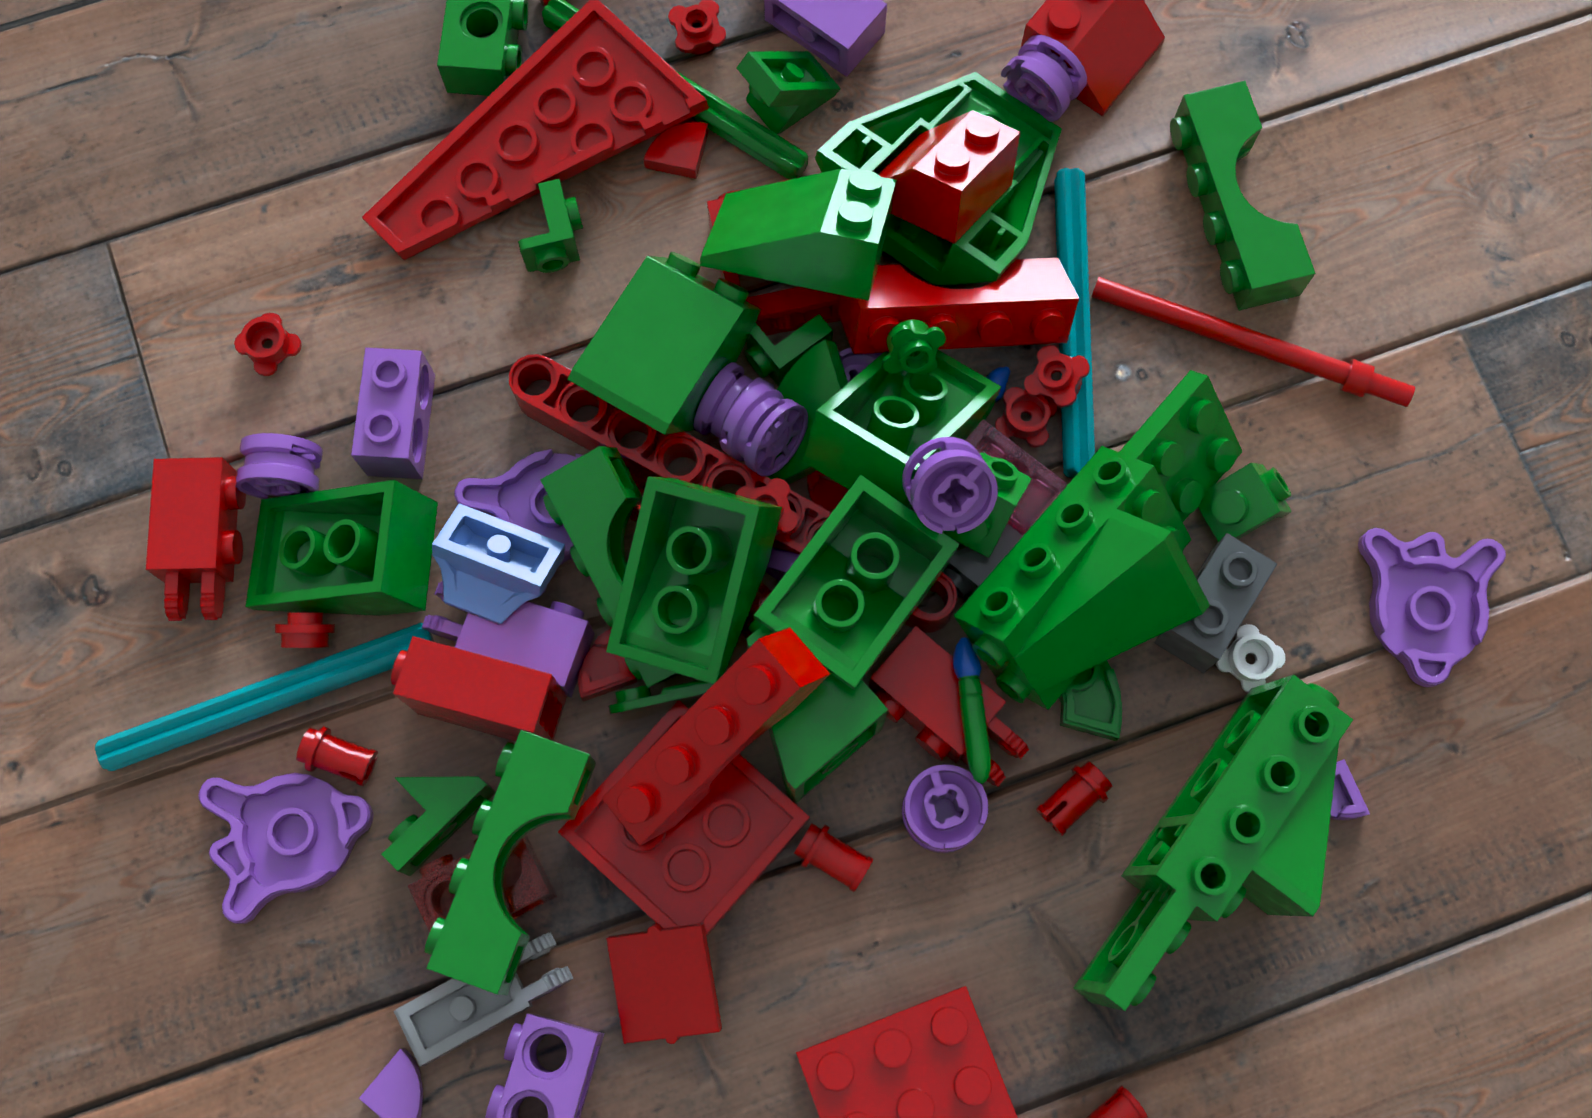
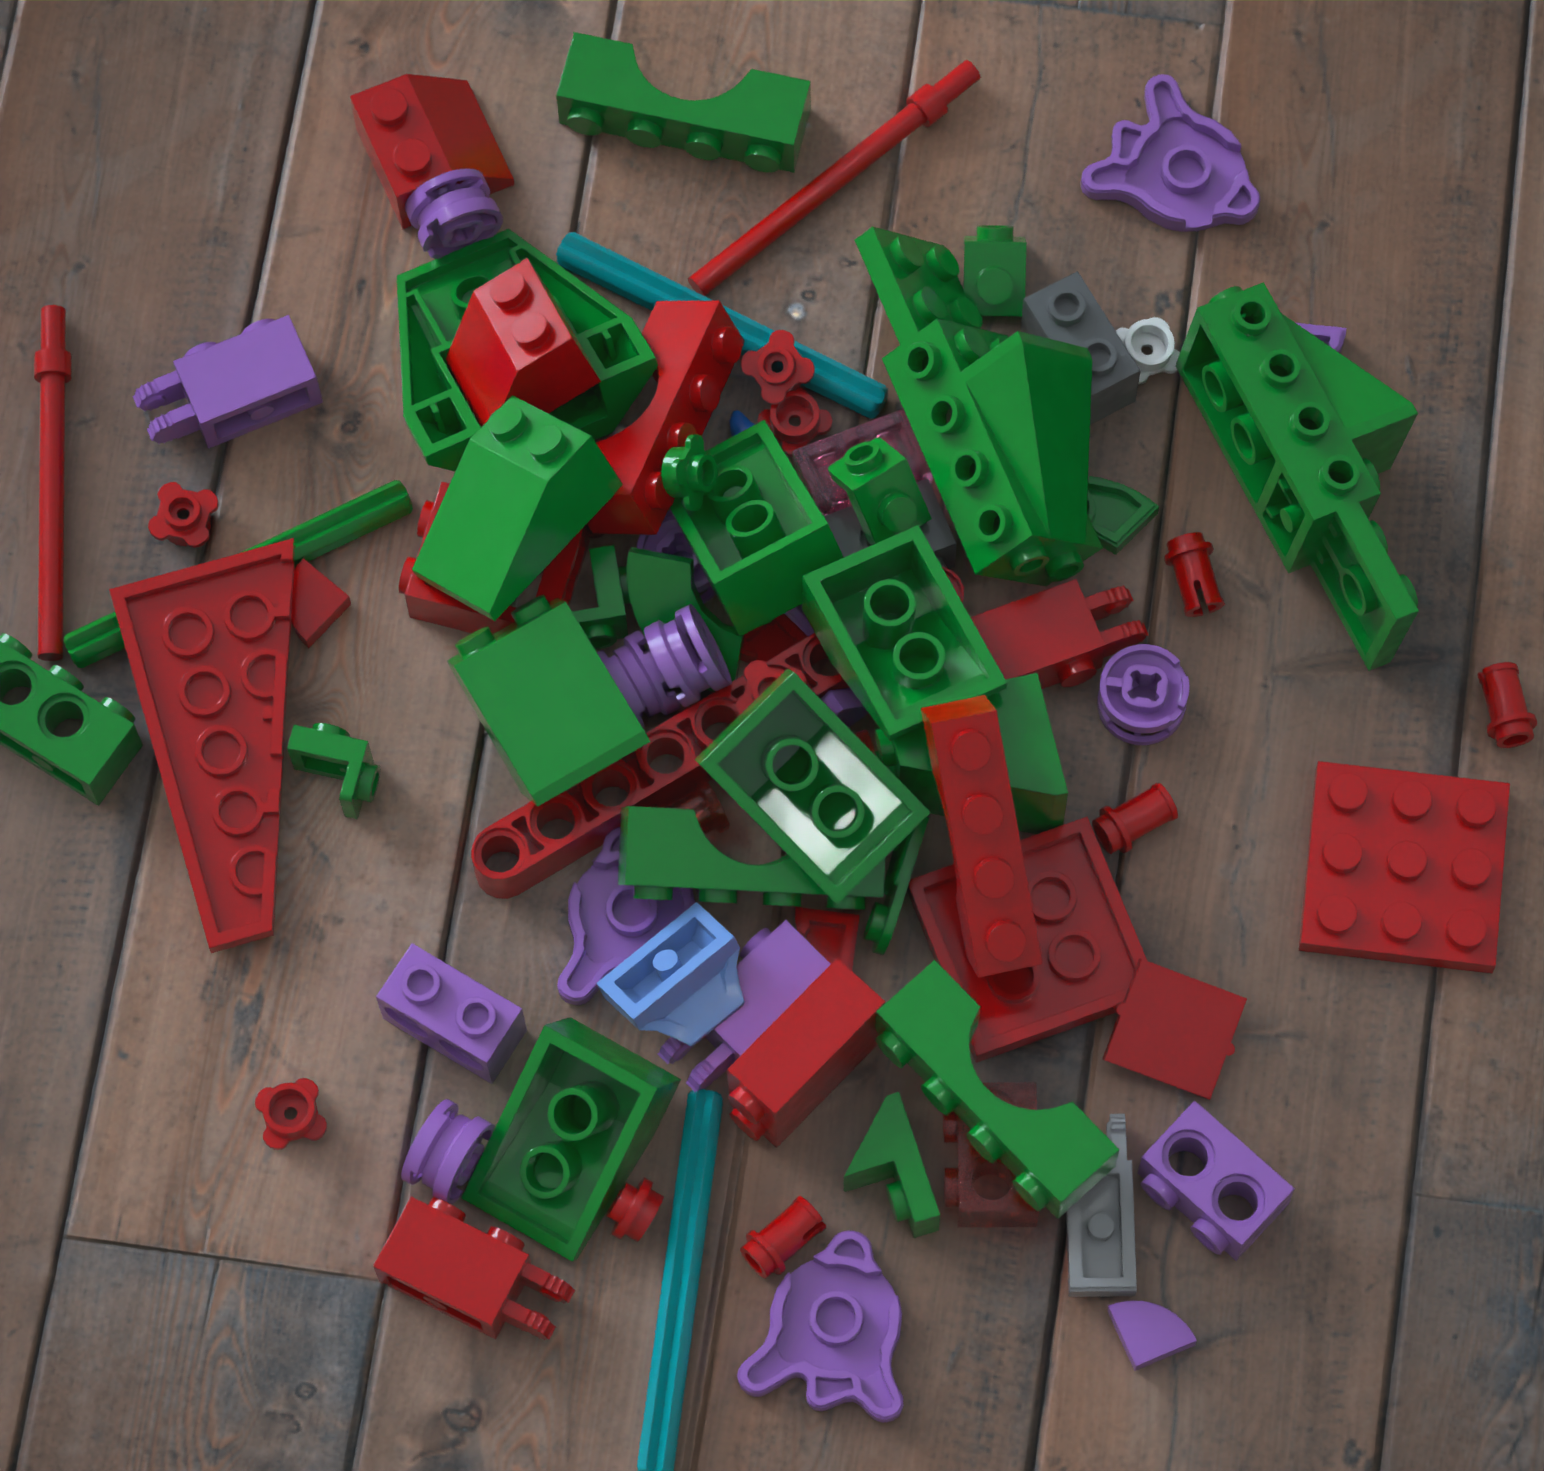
camera: 60 degrees left, 5 degrees down
(785, 86) = (310, 463): green slope -> none
(951, 486) = (867, 499): medium lavender wheel -> none
(968, 669) = (1029, 594): green piece -> none

